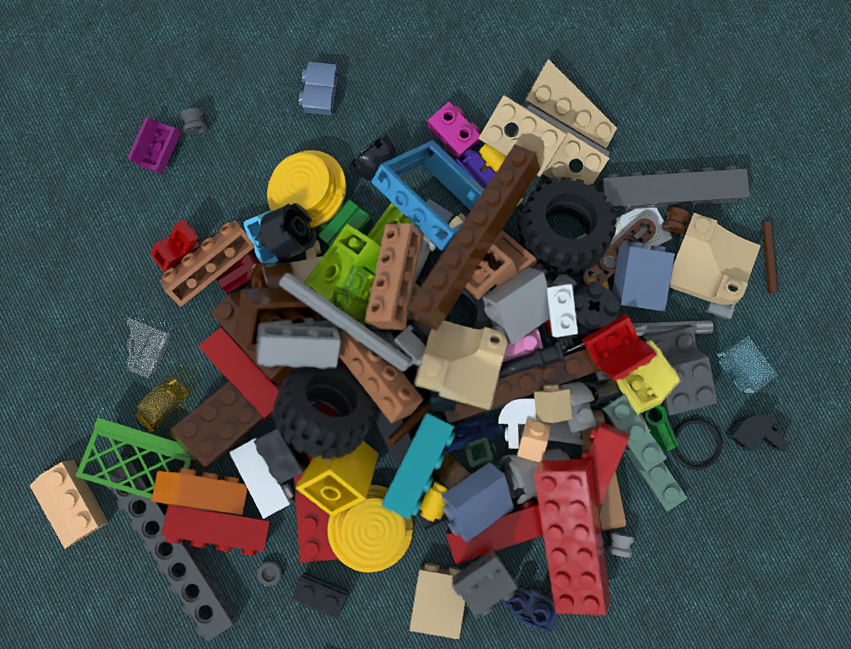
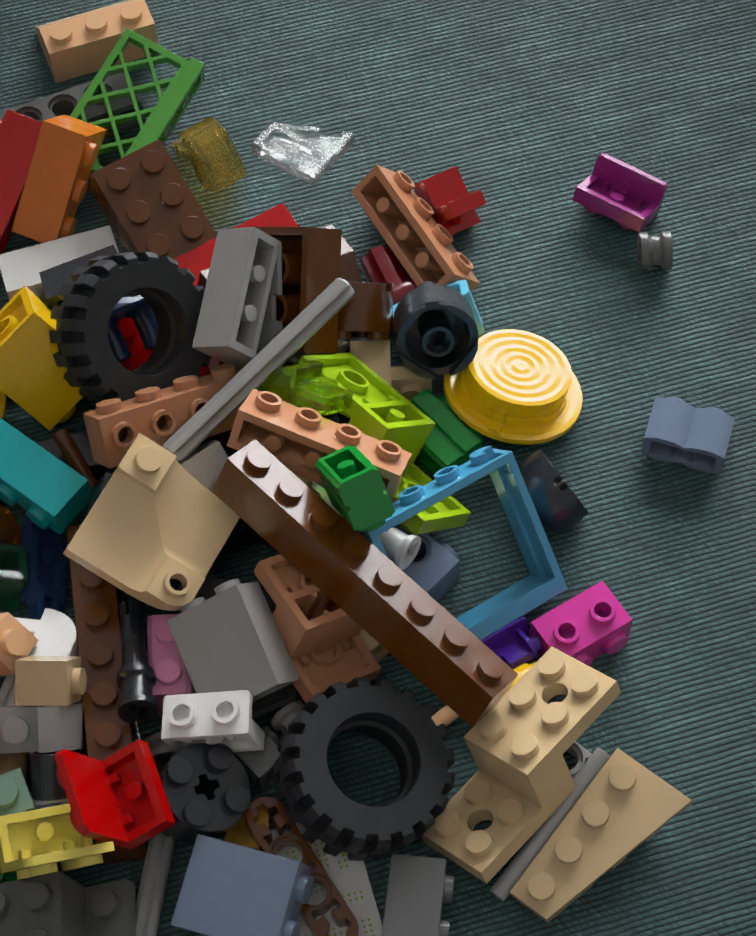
camera: 100 degrees right, 25 degrees down
(432, 242) = (355, 489): none -> green brick

